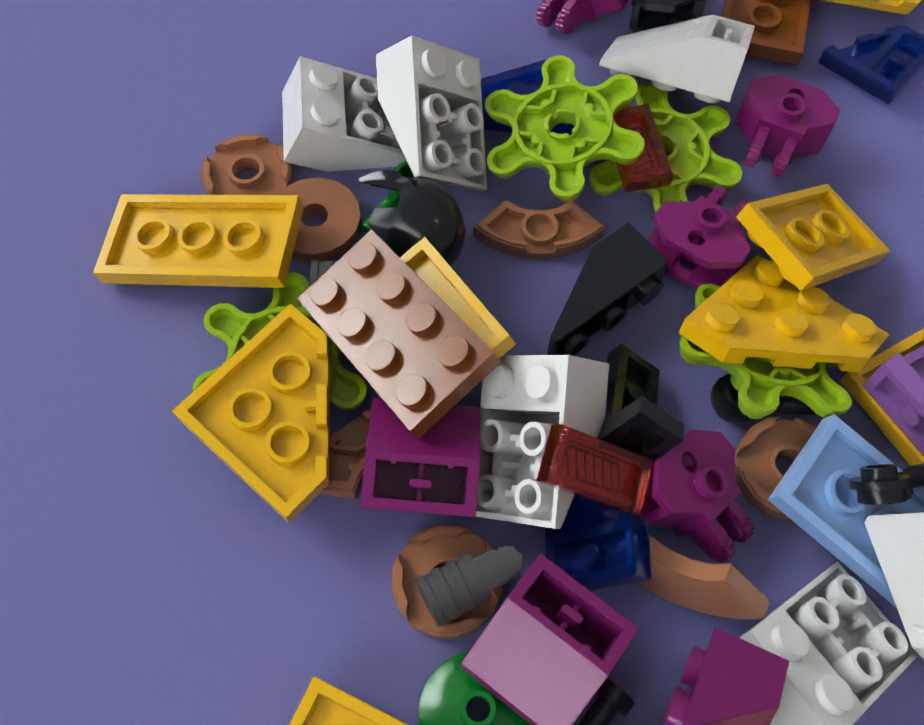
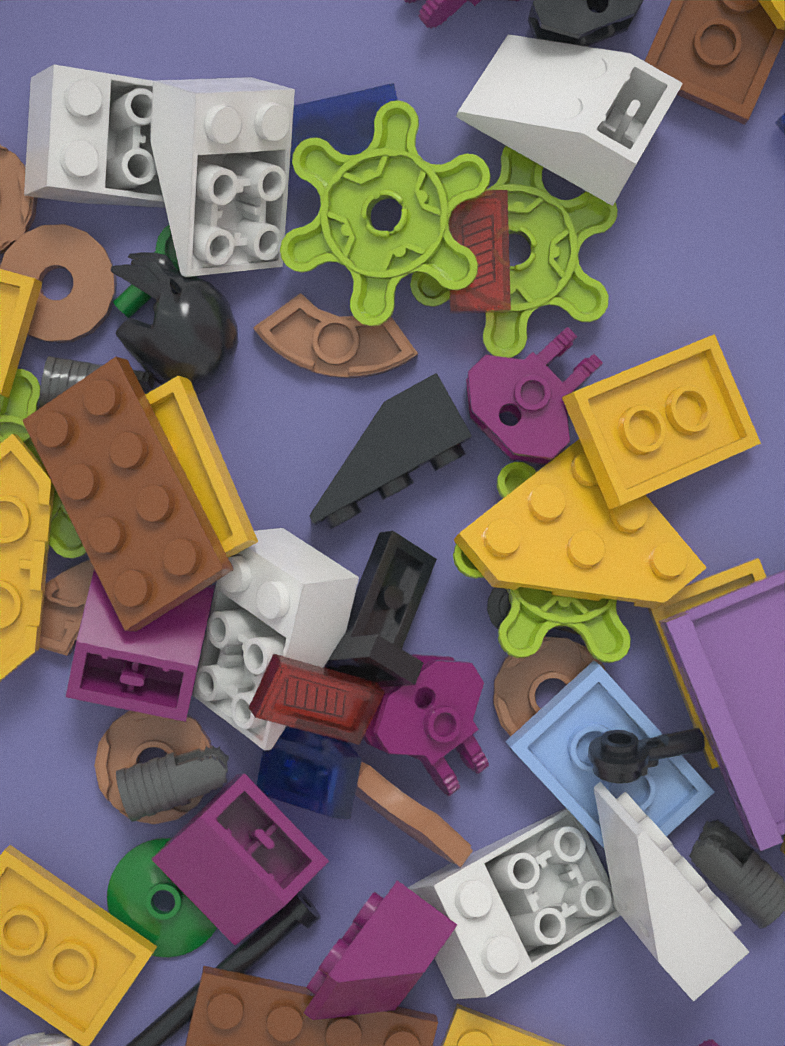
camera: 10 degrees right, 25 degrees up
(784, 123) = (678, 244): magenta hinge -> none

